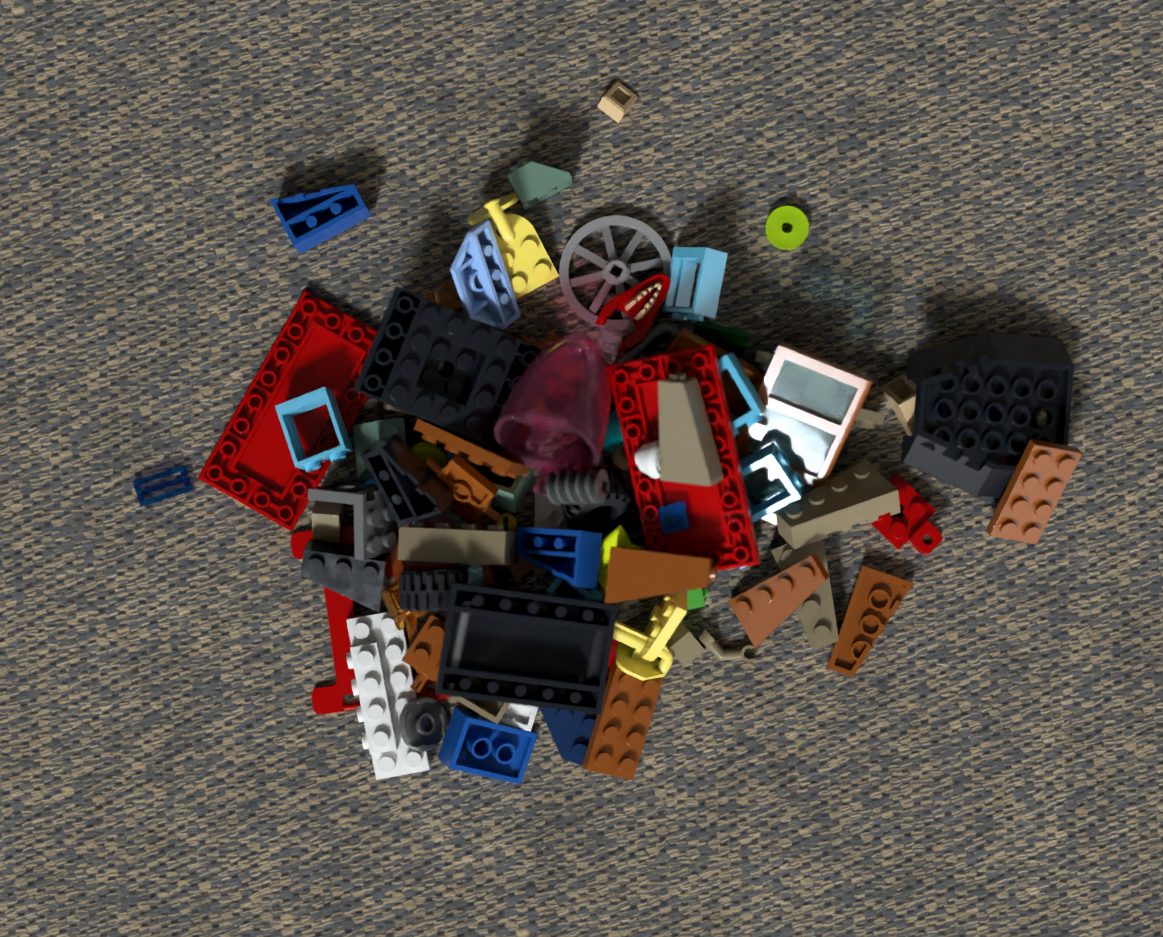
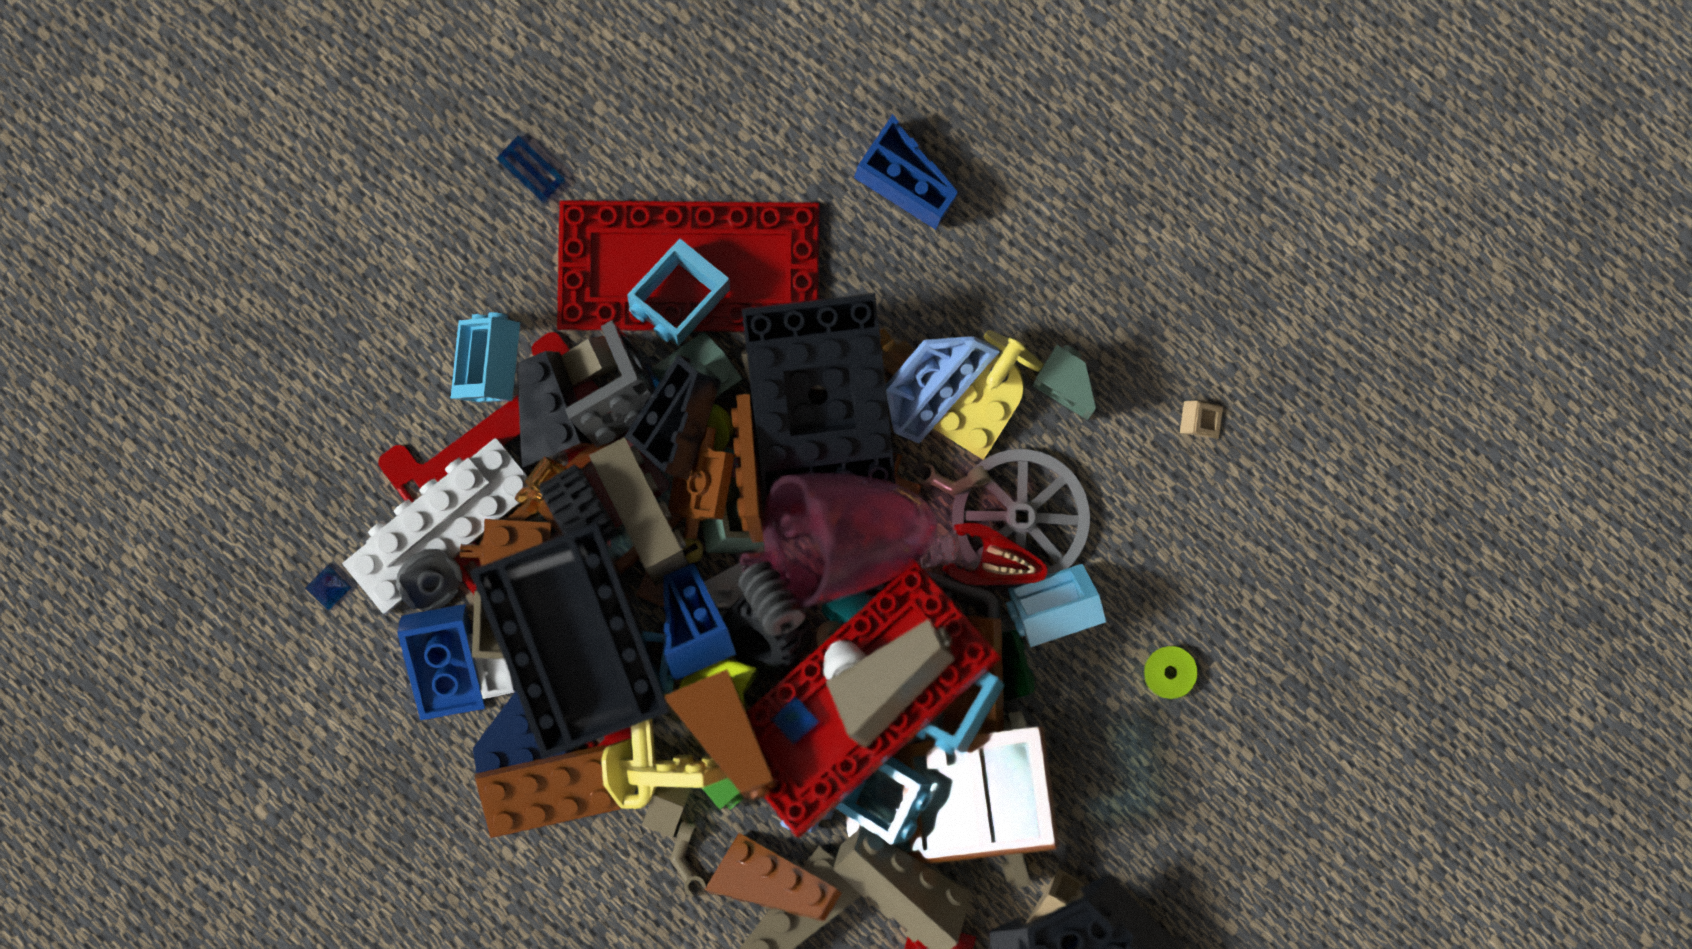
camera: 55 degrees right, 5 degrees down
(284, 595) = (485, 358): none -> medium azure window
(388, 798) = (328, 587): none -> clear blue slope
(569, 289) = (976, 478): none -> dark tan arm

